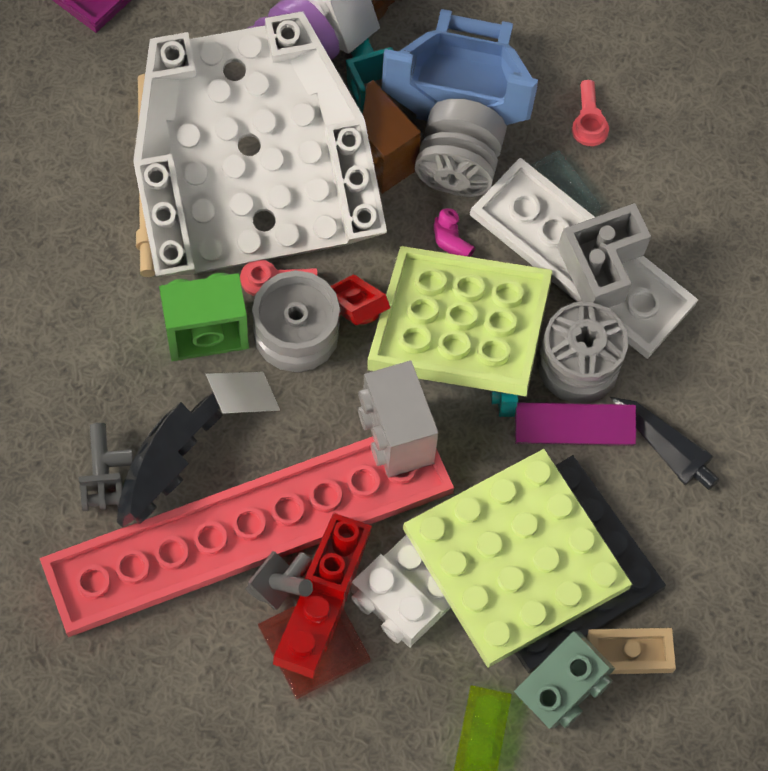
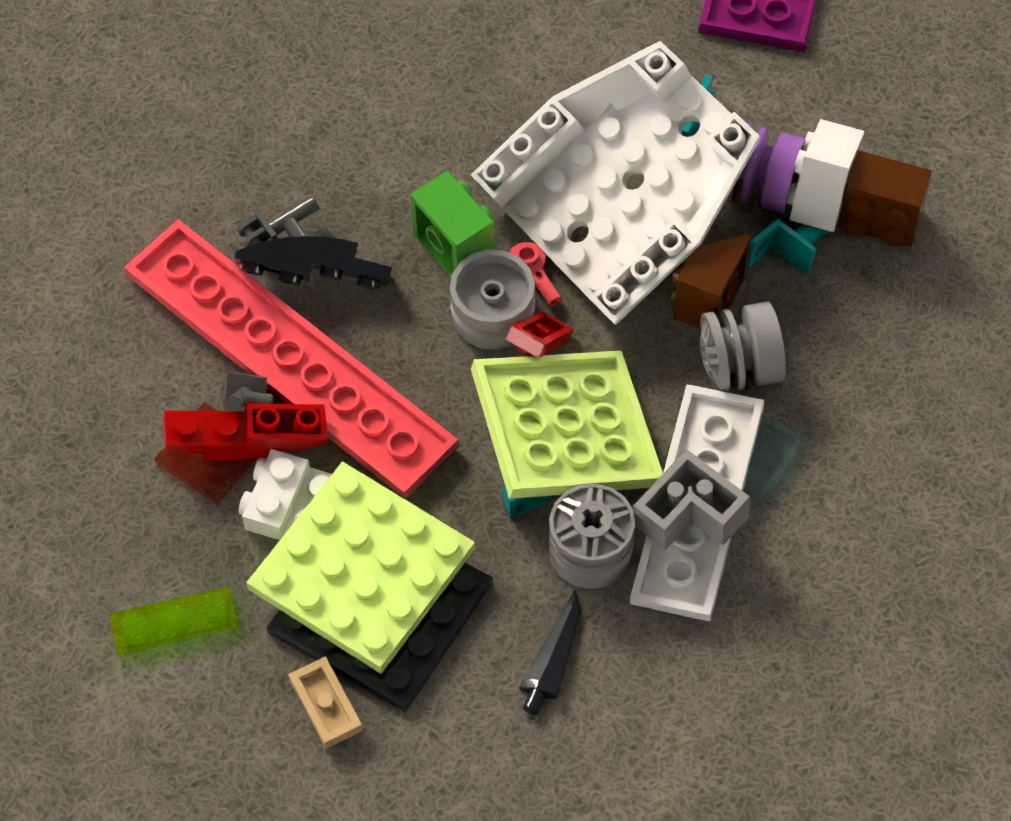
camera: 70 degrees right, 5 degrees down
(242, 392) = (405, 292): white sticker -> none
(398, 419) = (428, 406): light grey brick -> none
(447, 234) = (658, 386): dark pink arm -> none
(461, 67) = (825, 313): medium blue piece -> none
(566, 681) = (263, 652): sand green brick -> none
(575, 424) = (525, 568): magenta tile -> none
(590, 126) = (849, 453): coral plate -> none

